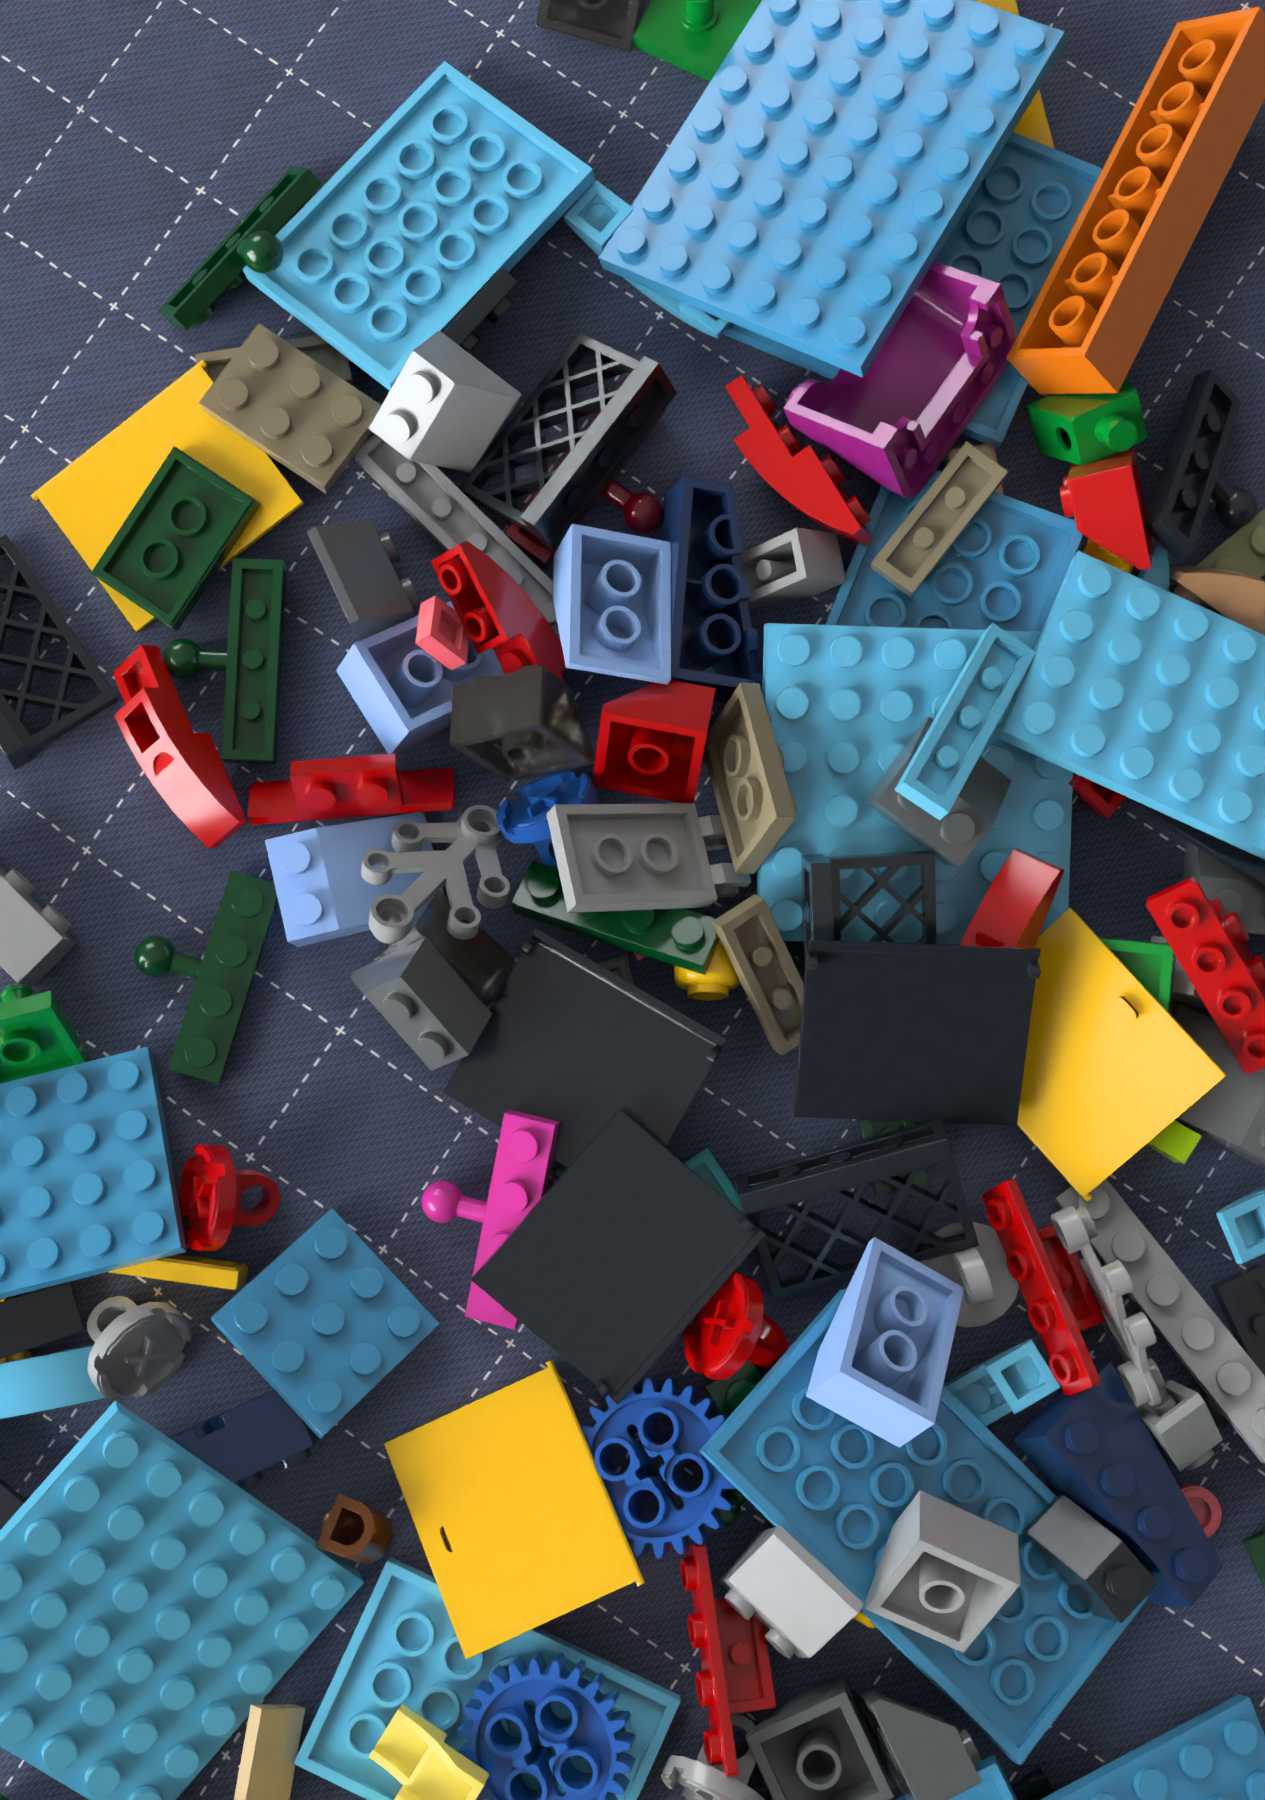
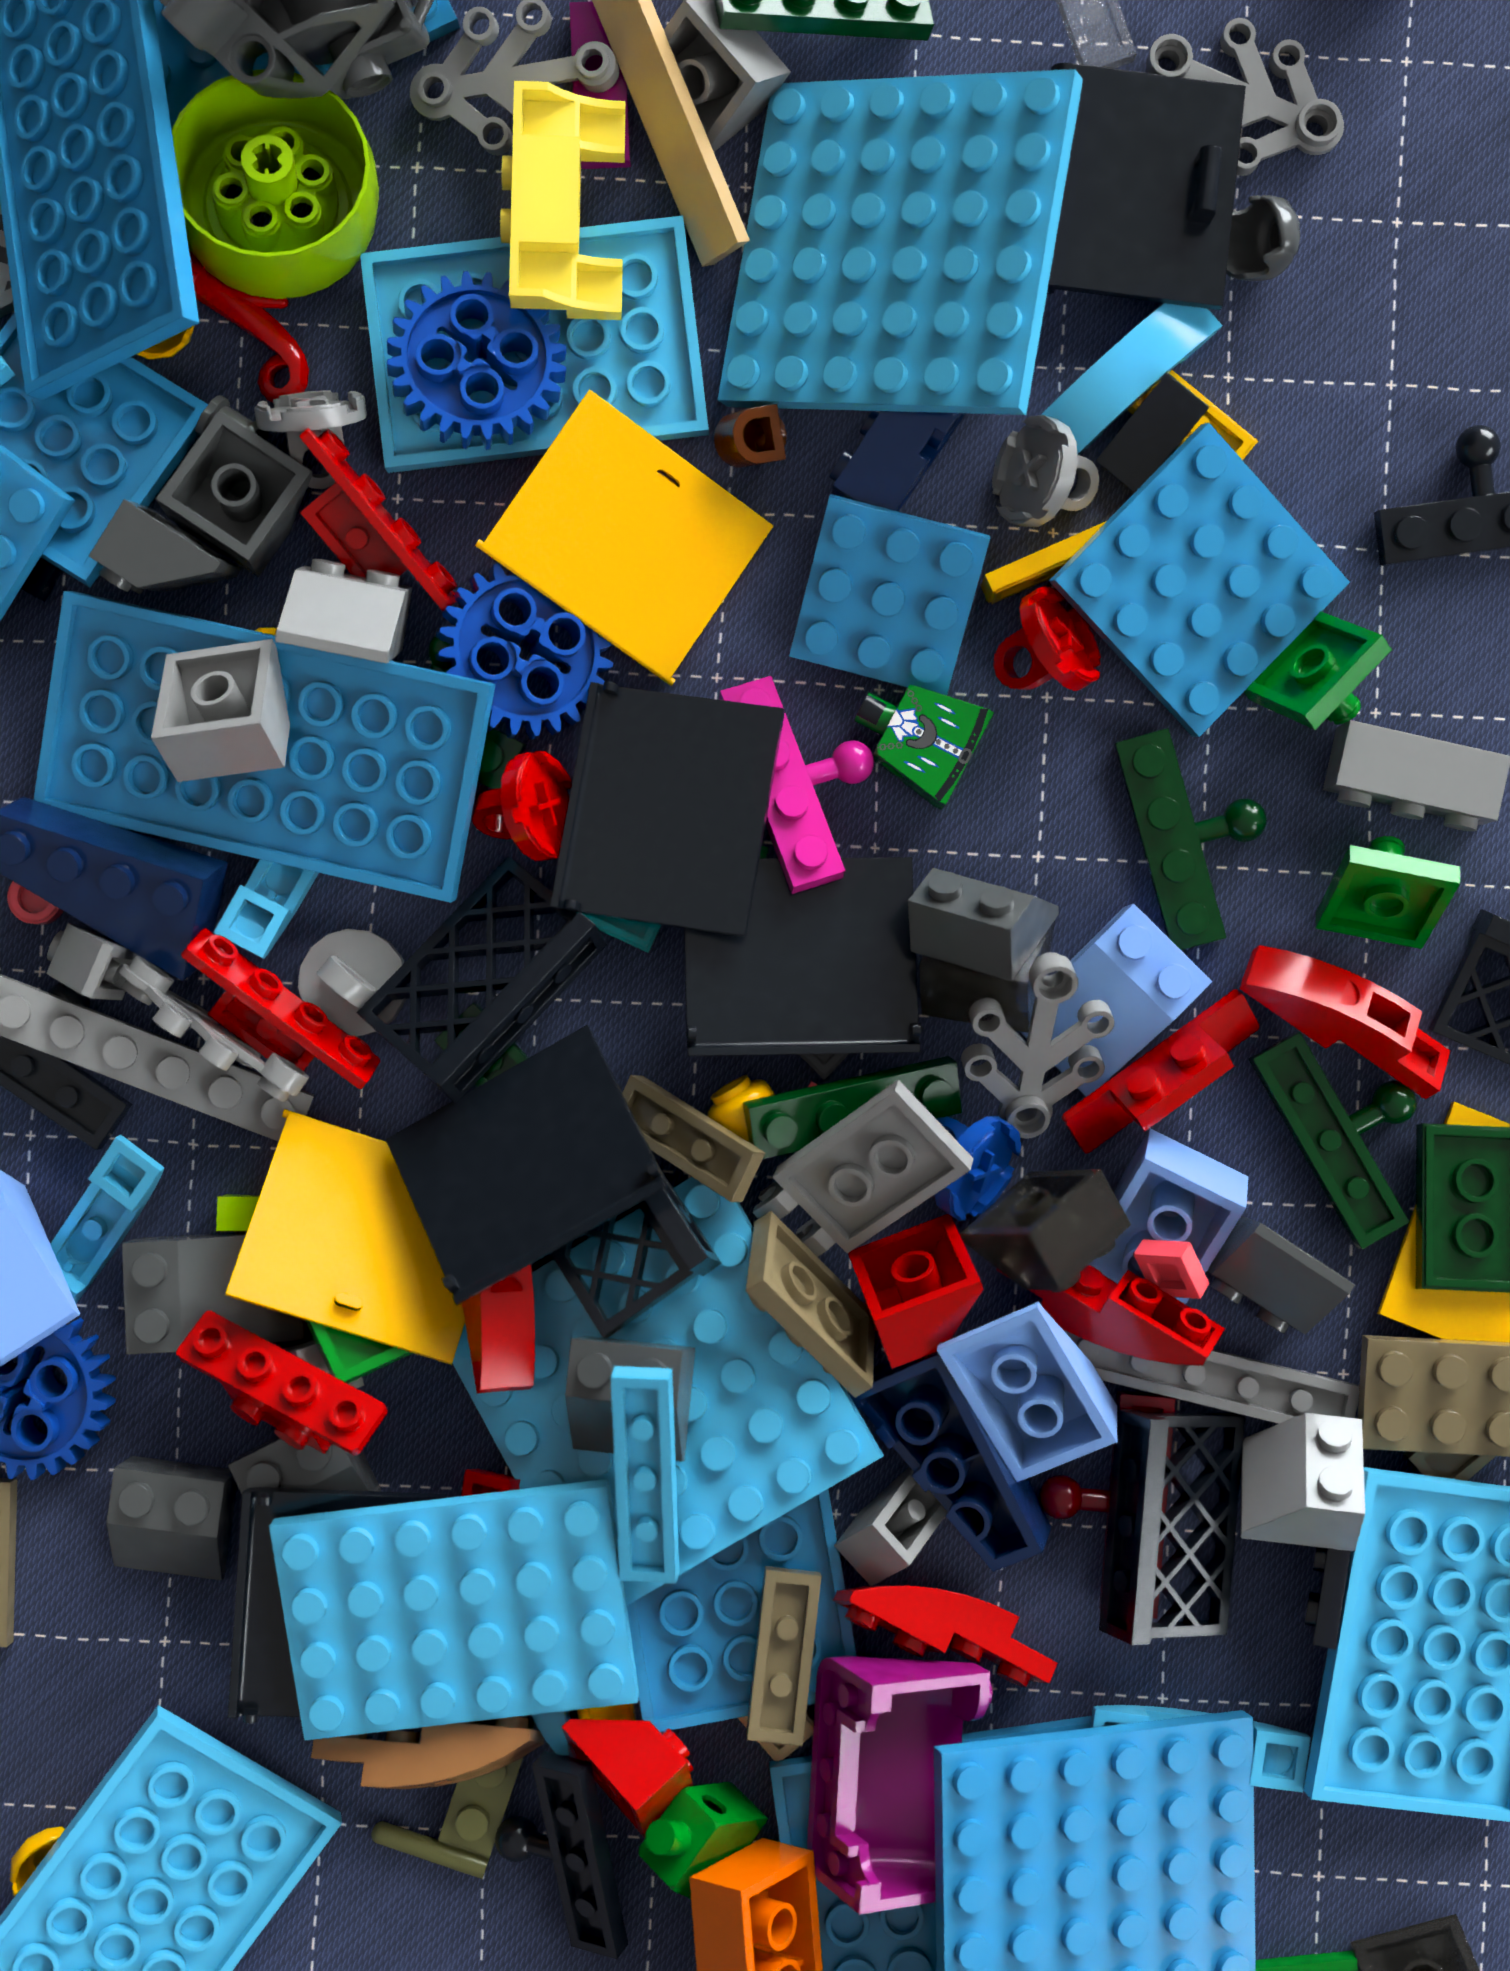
camera: 145 degrees right, 5 degrees up
(80, 824) = (1387, 894): none -> green tile
(370, 1183) = (925, 739): none -> green torso
(888, 1345) = (384, 875): light blue slope -> none
(1090, 1559) = (102, 800): black slope -> none

